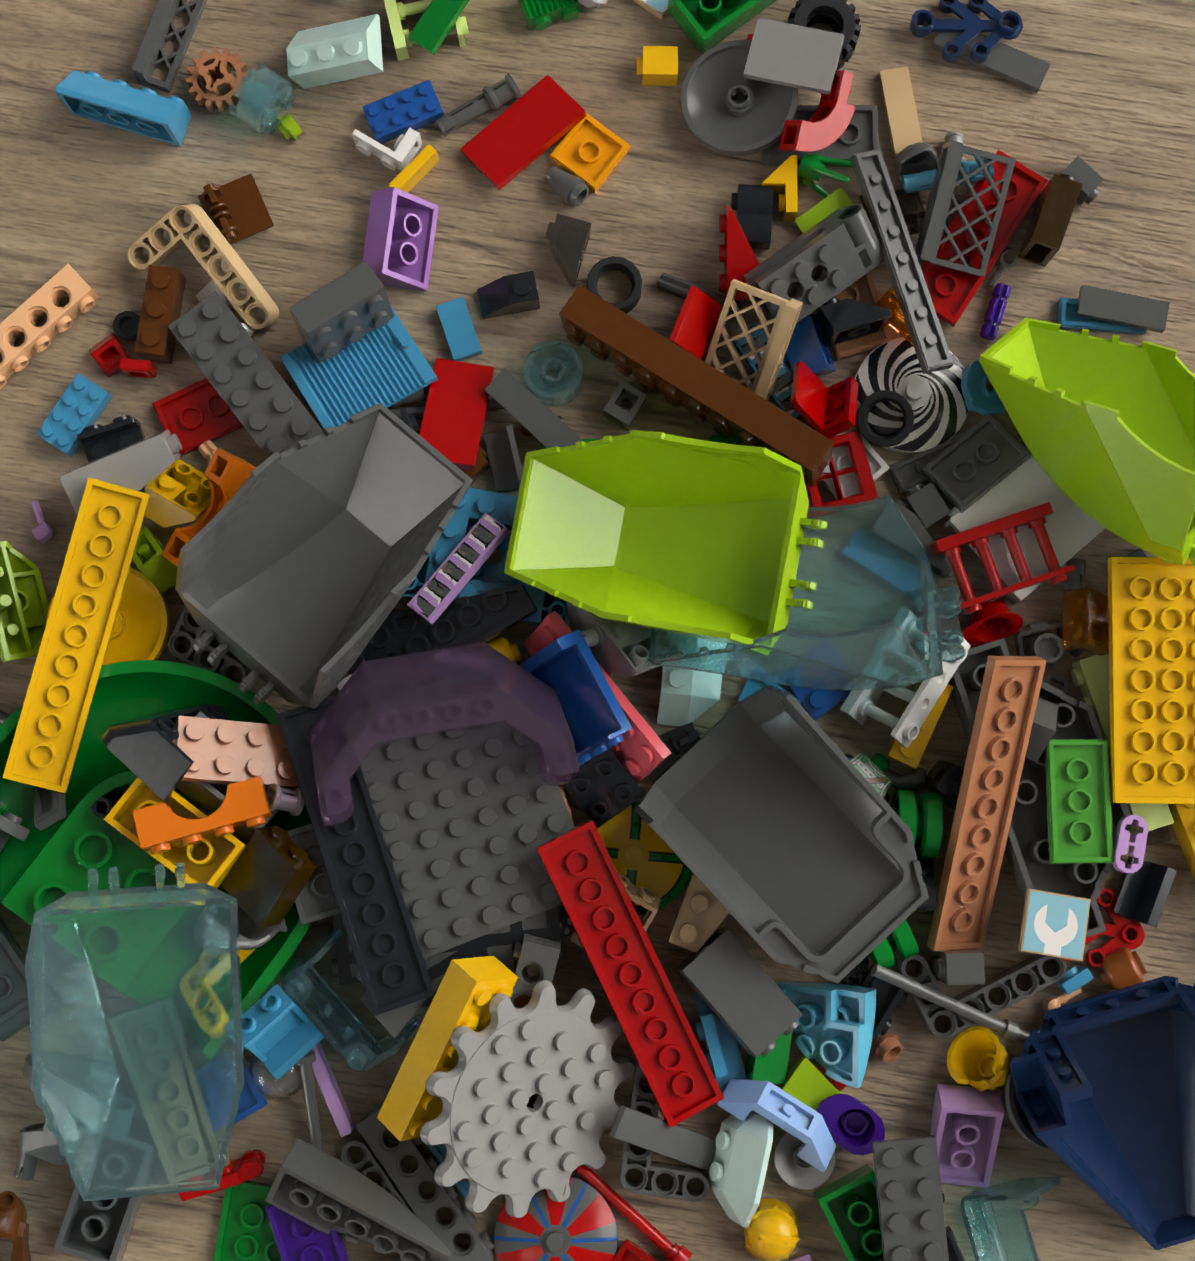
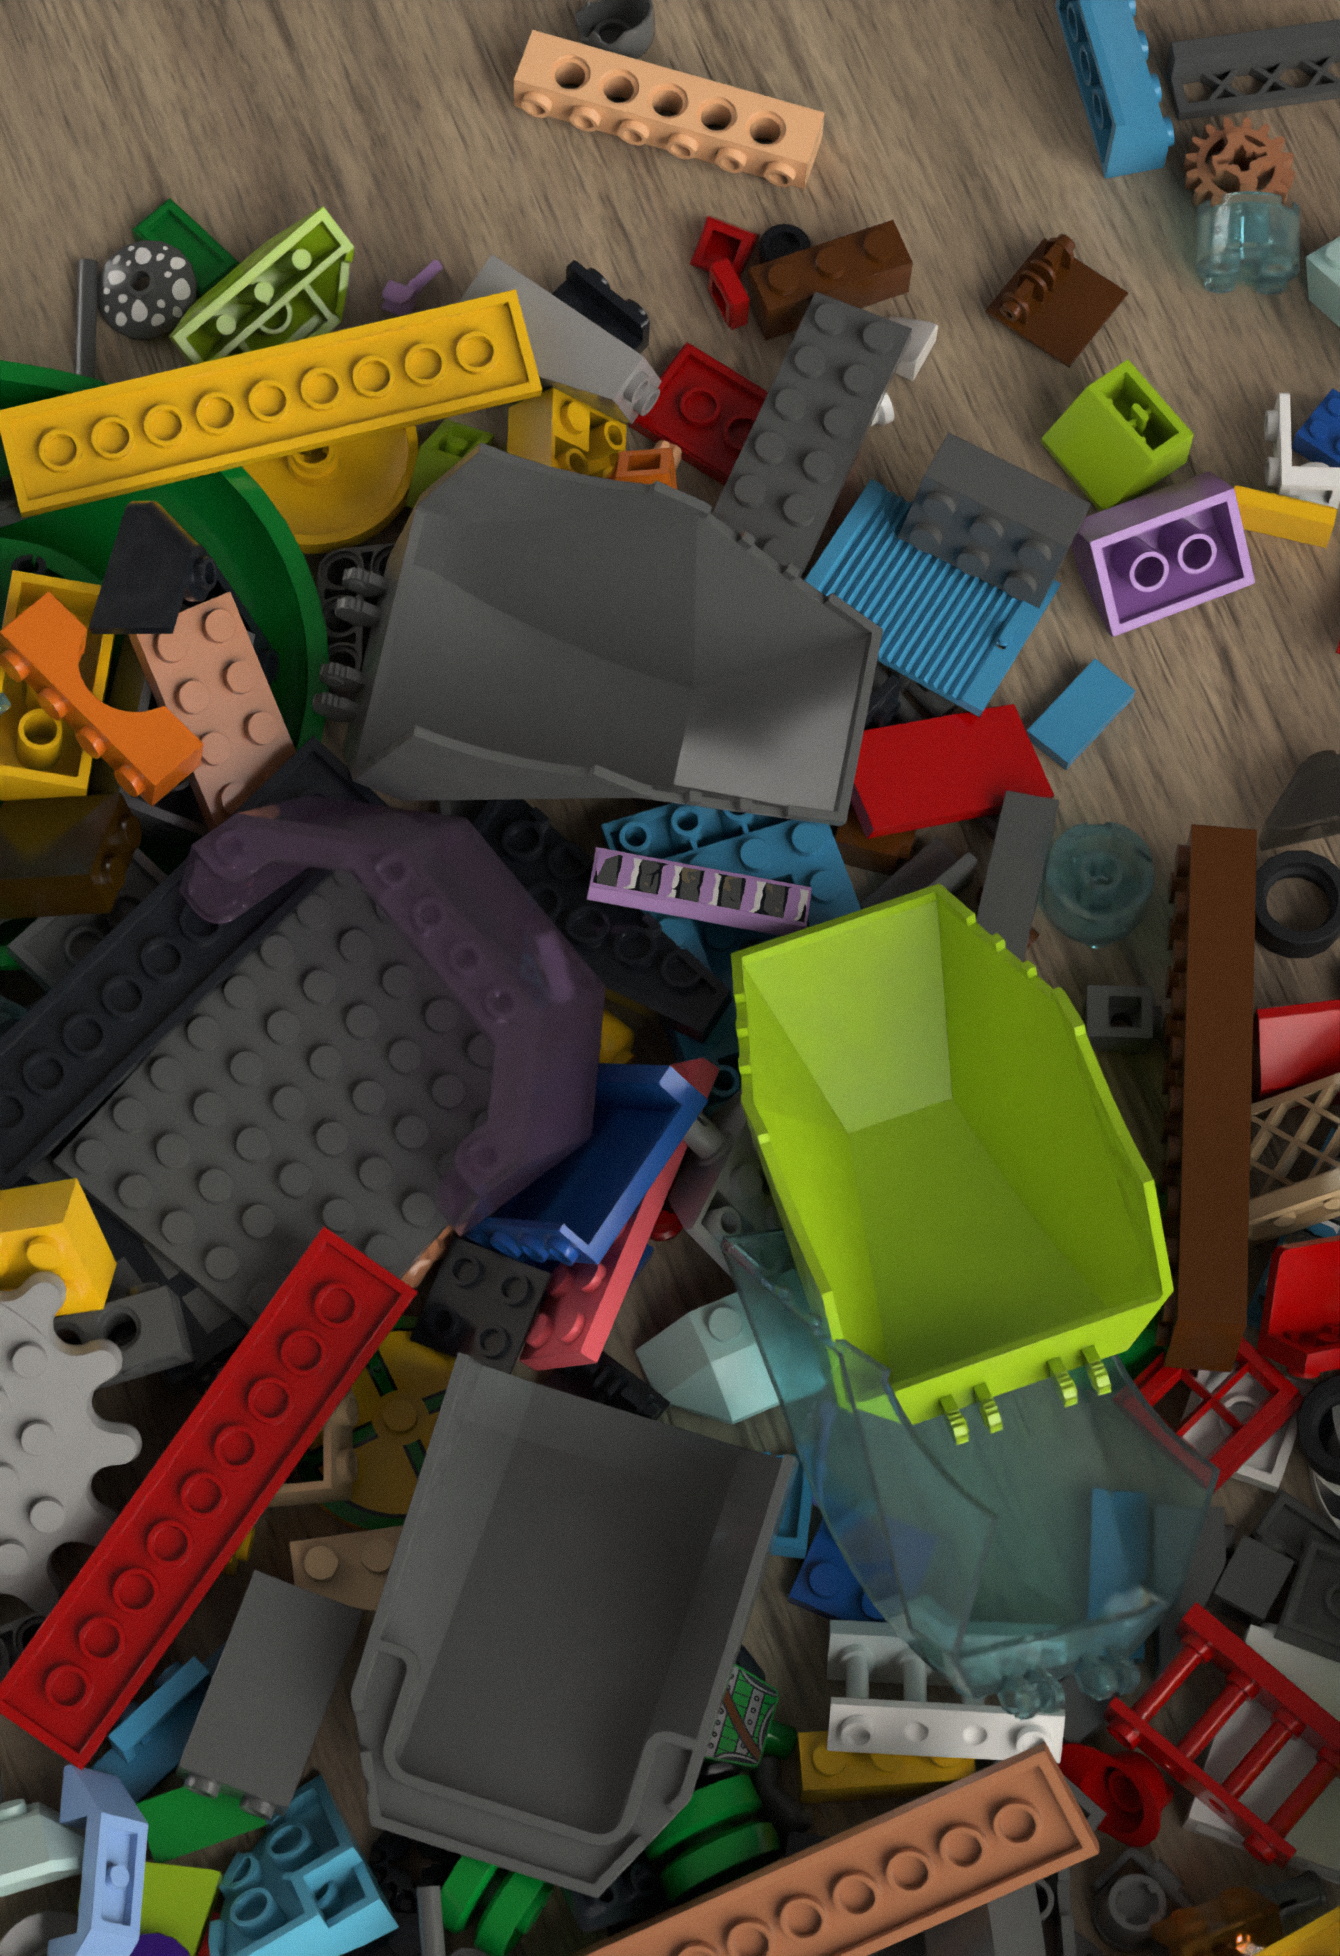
camera: 60 degrees right, 15 degrees down
(75, 410) = (619, 245): dark azure piece -> none
(209, 258) = (956, 299): tan beam -> none
(285, 799) = (186, 816): light grey bush -> none
(289, 127) = (1233, 307): lime plate -> none
(329, 225) = (1118, 438): none -> lime slope
(509, 295) = (1183, 758): black slope -> none

